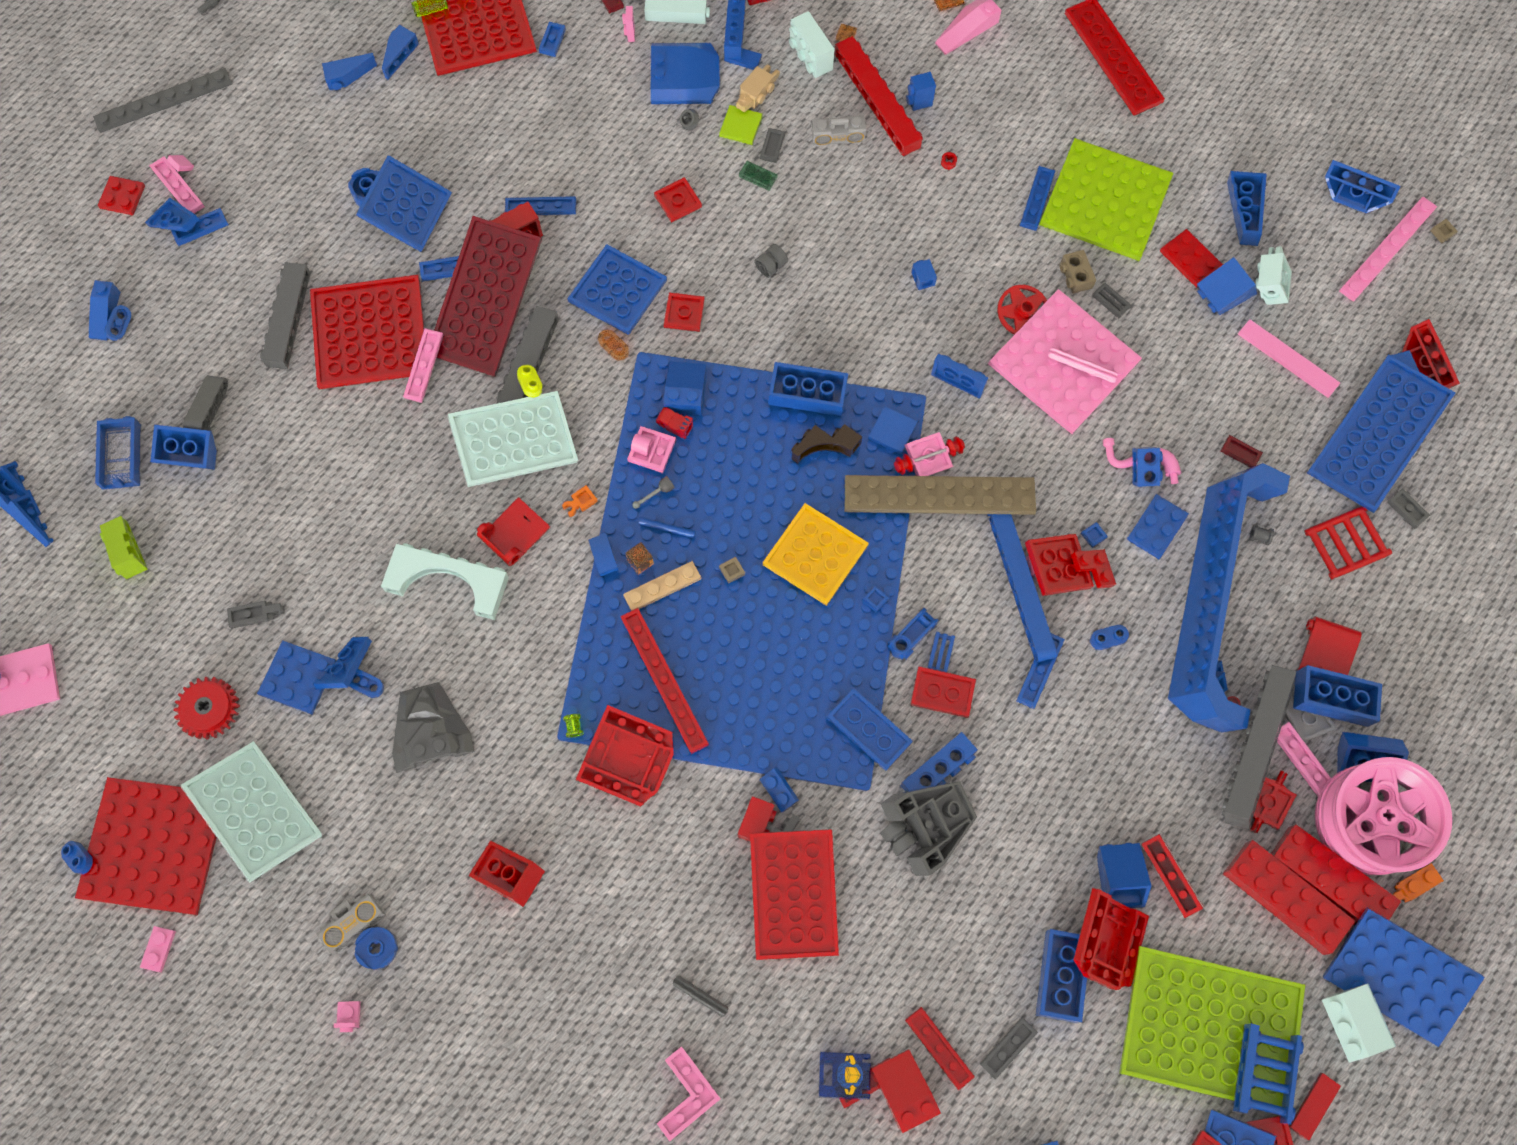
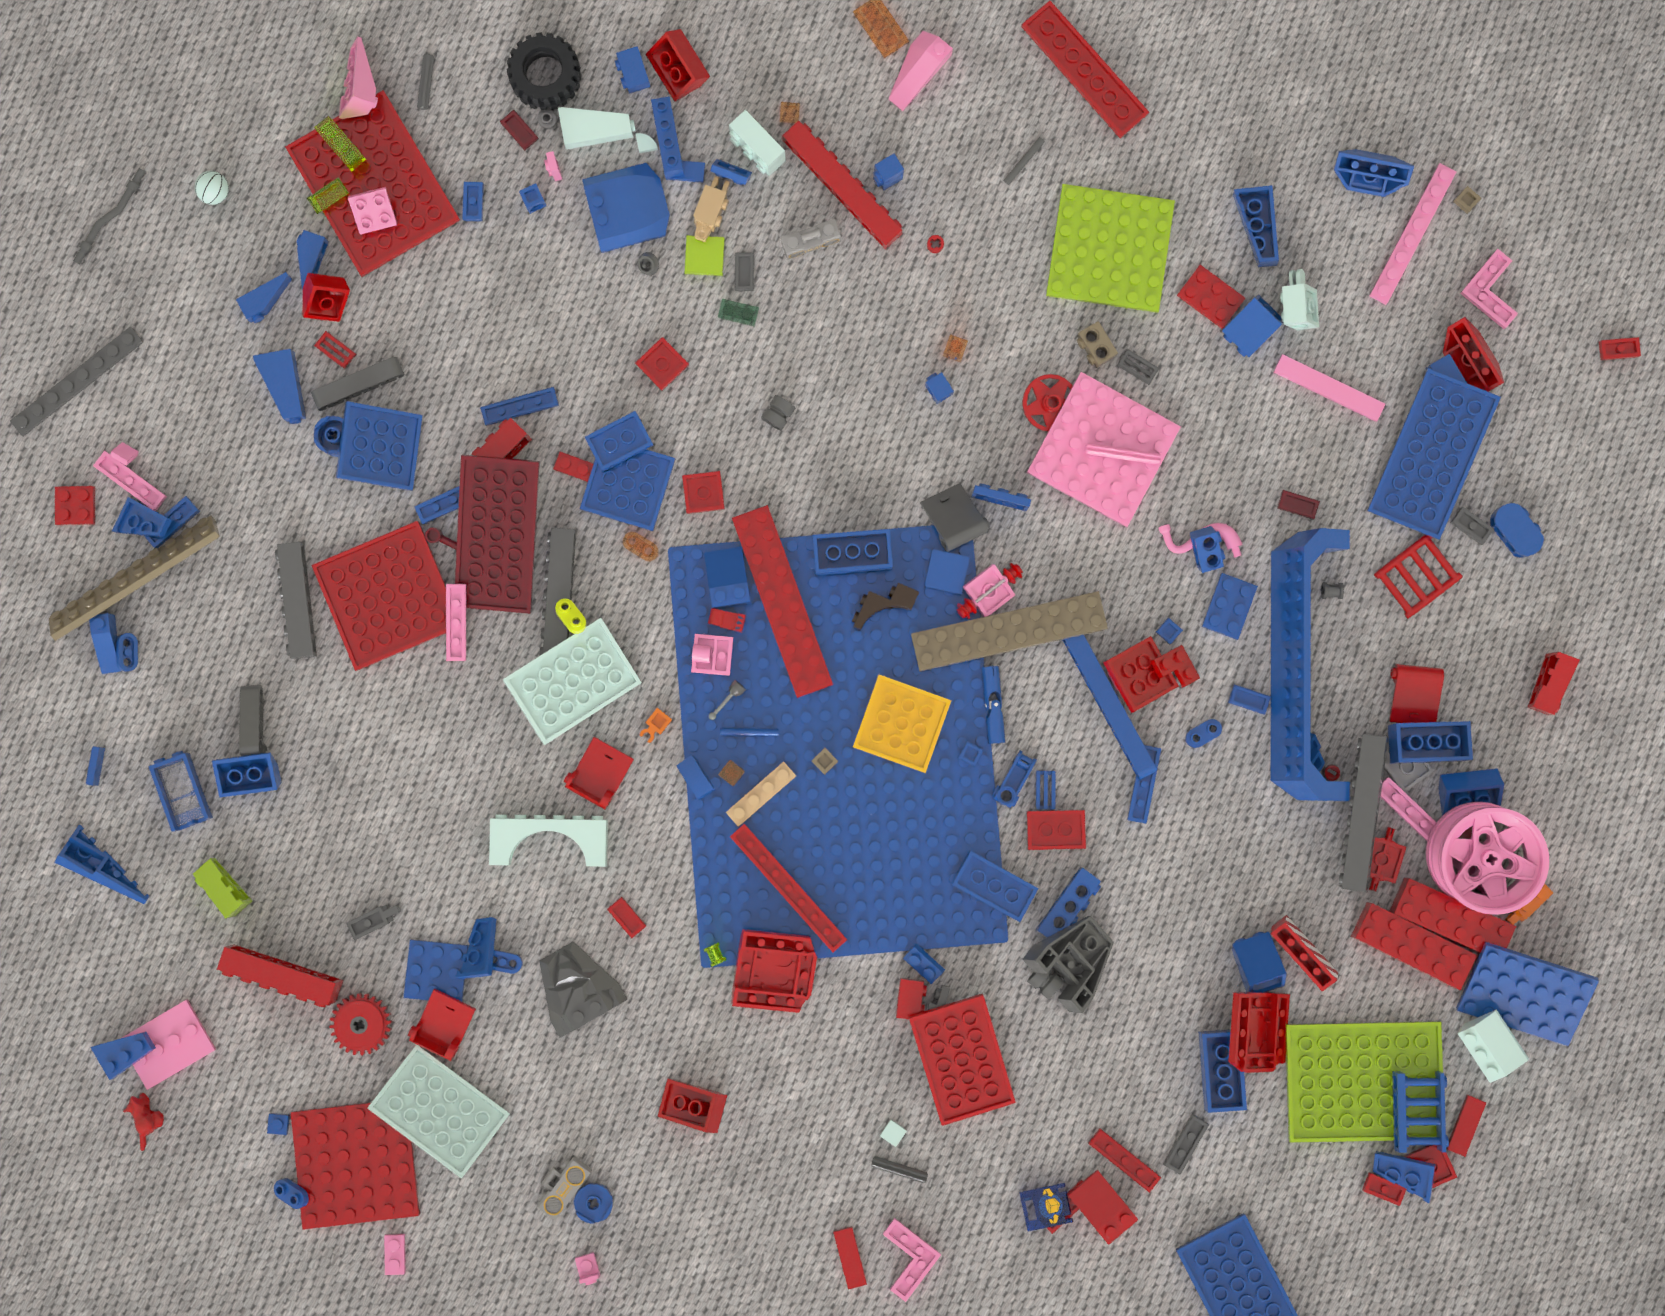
camera: 15 degrees left, 15 degrees up
(50, 411) = (95, 766): none -> blue tile
(91, 786) = (278, 1124): none -> blue plate
(139, 261) = (133, 577): none -> dark tan plate
(144, 639) = (279, 975): none -> red brick
(284, 729) = (442, 1025): none -> red door
(339, 138) = (282, 380): none -> blue slope
(398, 79) = (324, 297): none -> red slope
(407, 132) = (347, 359): none -> red tile
(407, 153) = (358, 382): none -> dark grey beam
(429, 292) = (435, 535): none -> dark red bar
(463, 21) = (372, 210): none -> bright pink plate
(498, 672) = (626, 917): none -> red tile
(572, 264) = (573, 466): none -> red plate
(604, 45) = (532, 198): none -> blue brick
(620, 248) = (619, 441): none -> blue plate
(623, 1078) = (850, 1257): none -> red tile
(704, 955) = (893, 1133): none -> light aqua tile
(714, 29) = (645, 143): none -> light aqua tile
(731, 421) = (782, 601): none -> red plate
(776, 62) = (737, 174): none -> blue plate
(907, 573) = (995, 718): none -> blue piece
(912, 386) = (955, 517): none -> dark grey door
(946, 245) = (955, 348): none -> clear orange brick
(1037, 198) = (1037, 265): blue tile -> none
(1043, 114) = (1024, 160): none -> dark grey bar
(1161, 616) = (1249, 699): none -> blue tile
(1444, 310) = (1478, 290): none -> bright pink plate
(1452, 522) = (1517, 530): none -> blue brick
(1471, 669) = (1552, 682): none -> red wedge

